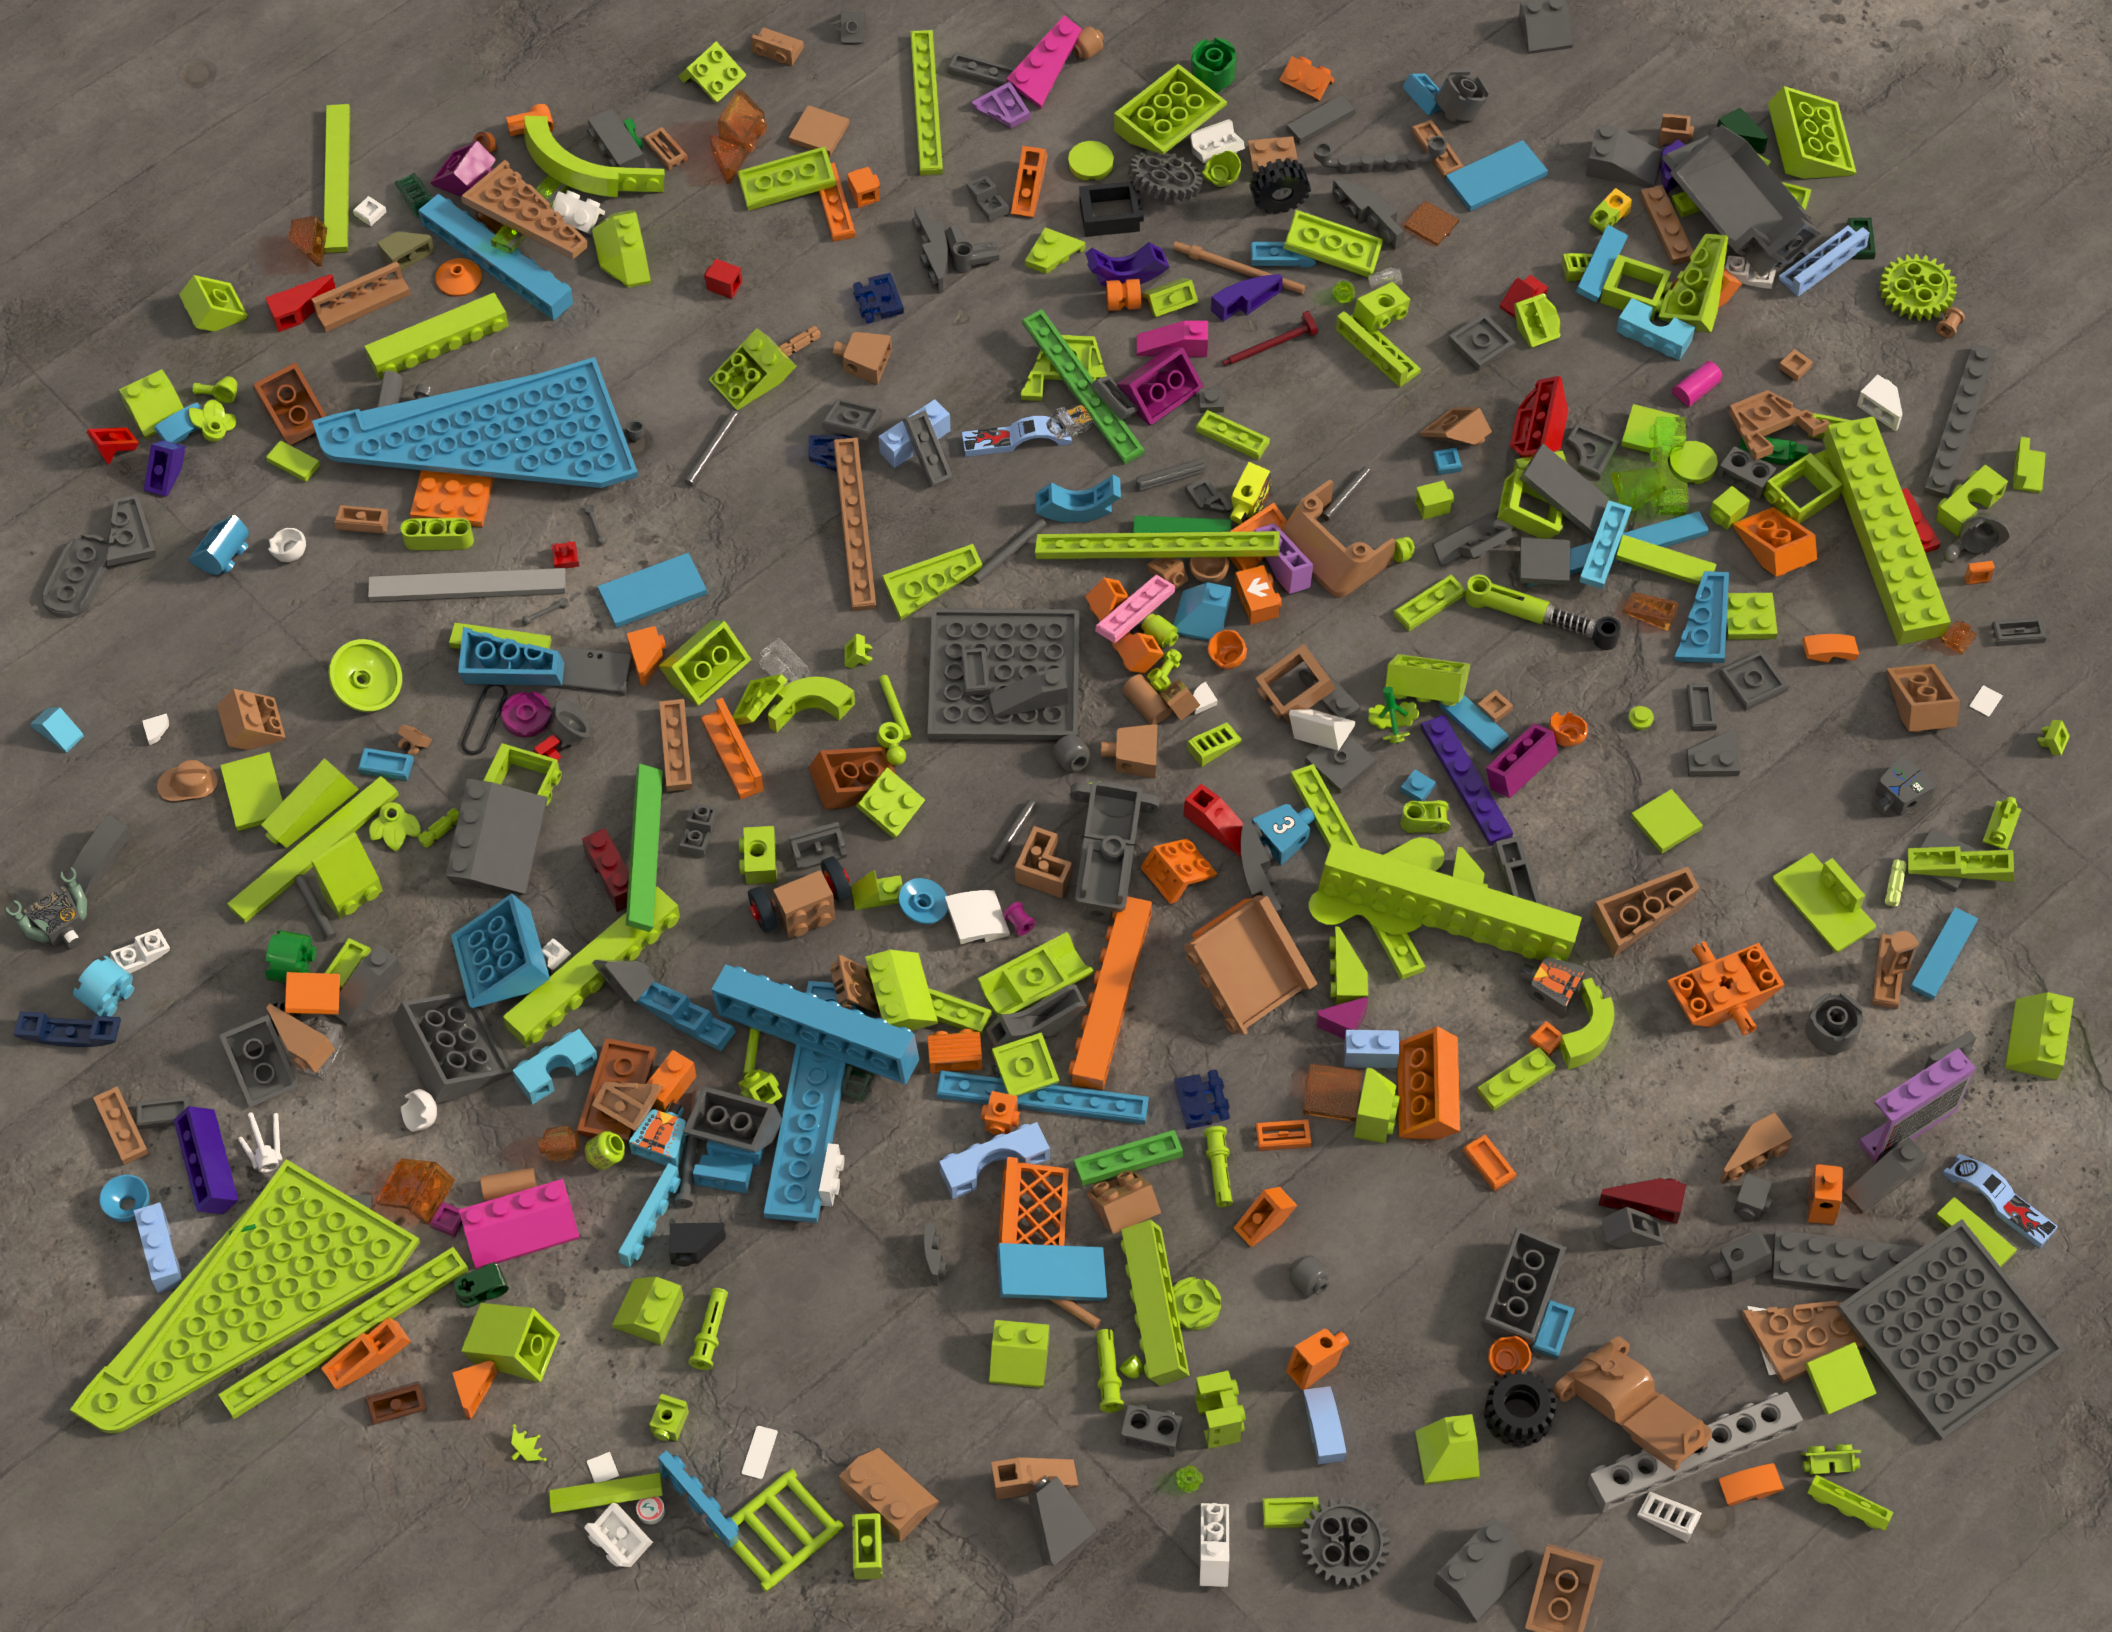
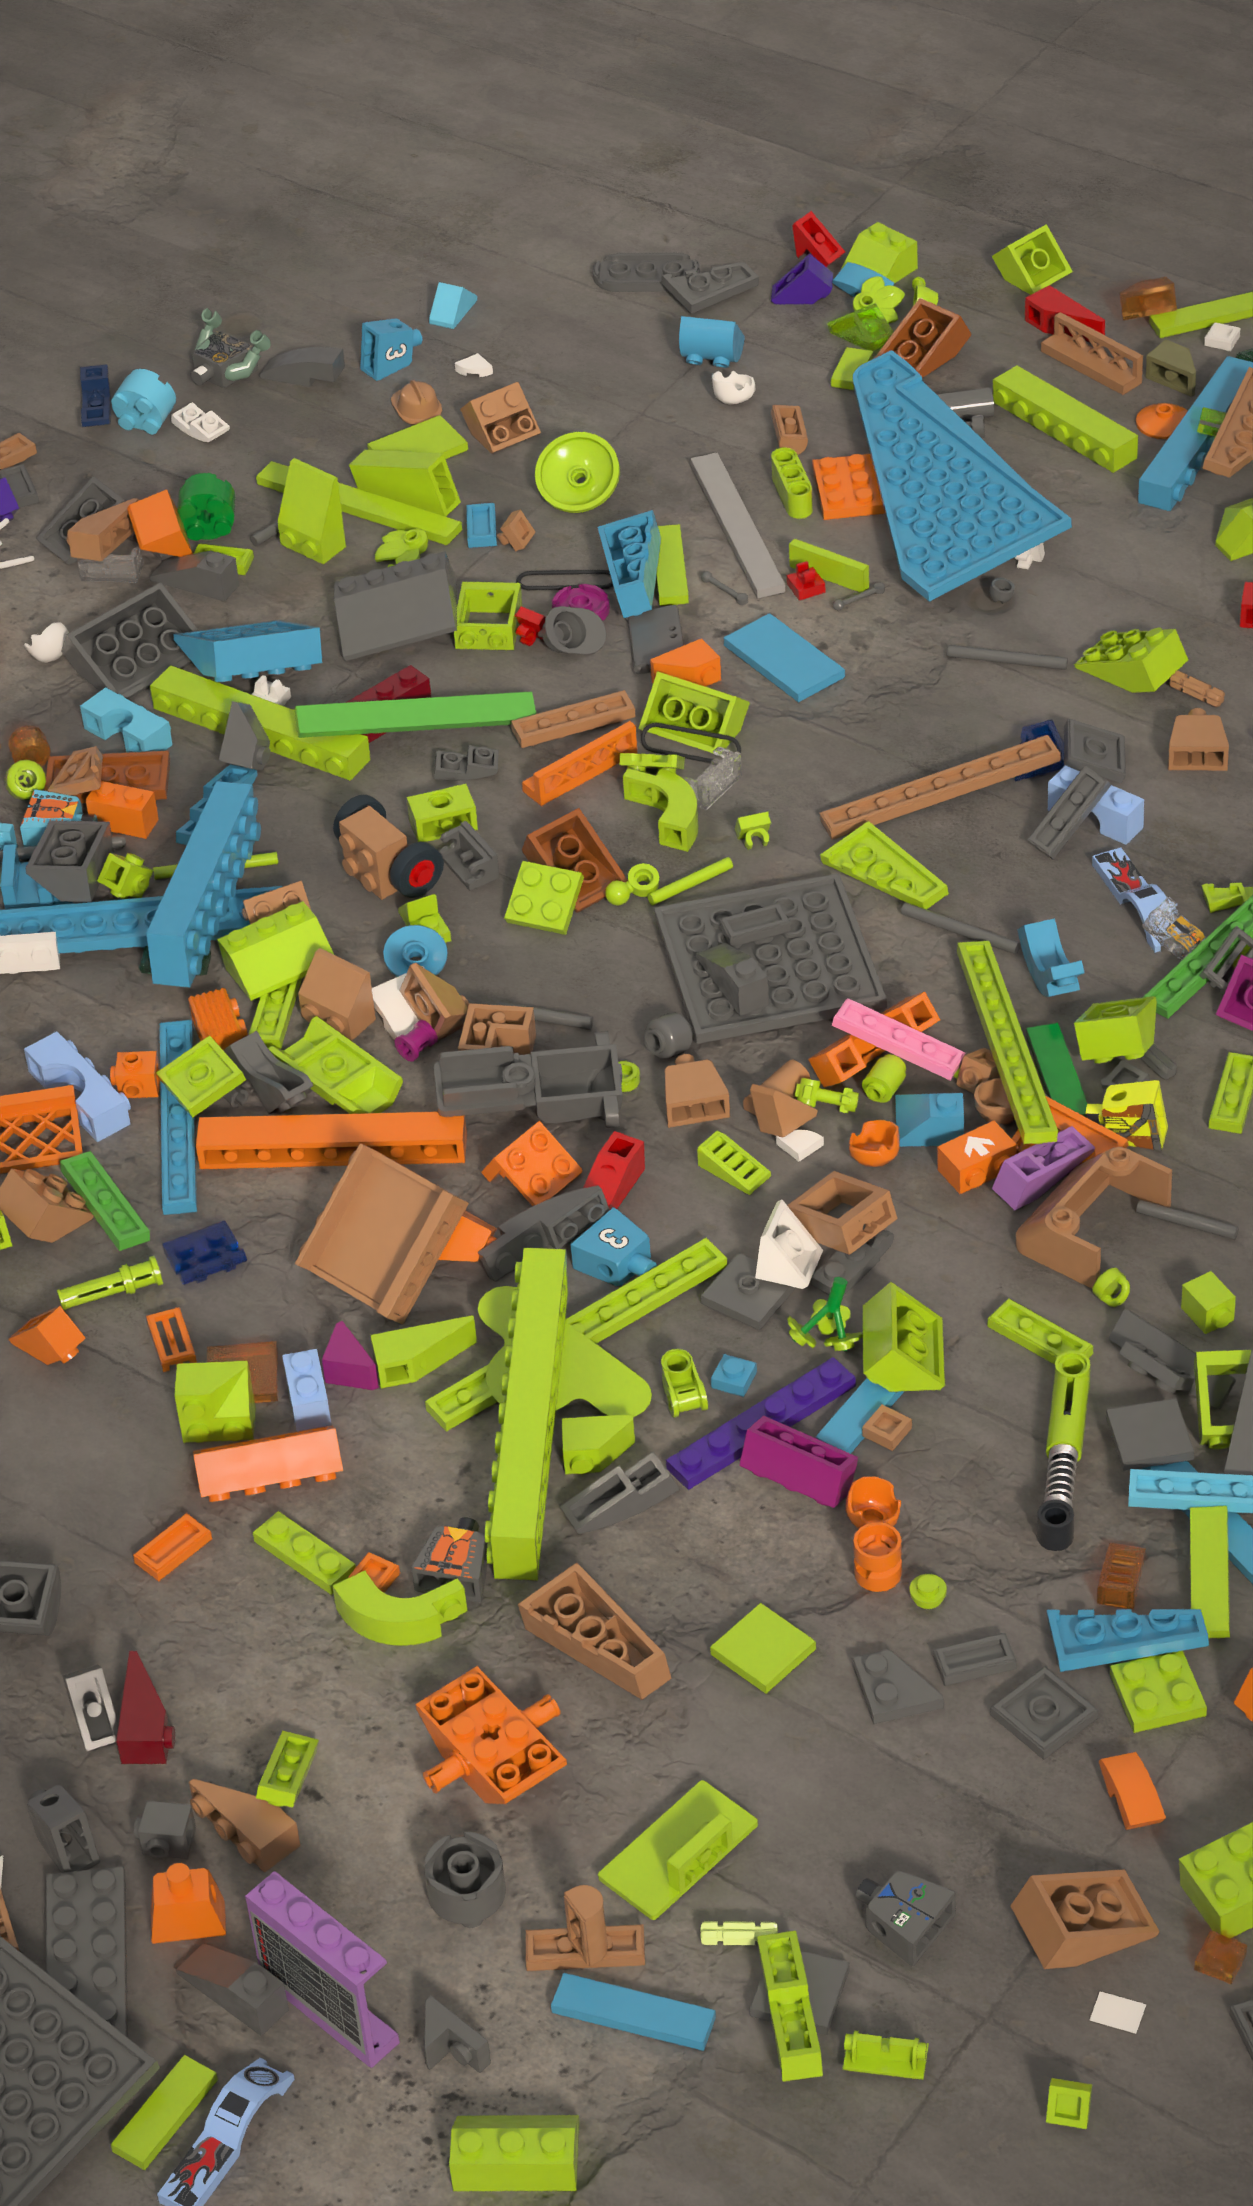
camera: 80 degrees right, 15 degrees down
(105, 774) = (387, 347): none -> dark azure torso
(246, 438) = (863, 328): none -> clear neon green wing
(557, 533) = (830, 565): none -> lime tile
(729, 666) = (687, 730): none -> black piece
(962, 960) = (337, 994): none -> medium nougat slope
(1001, 892) = (434, 1000): none -> medium nougat slope
(1163, 478) = (1116, 1029): none -> lime slope
(1615, 735) = (877, 1556): none -> orange wheel
(1724, 1111) = (287, 1769): none -> lime plate

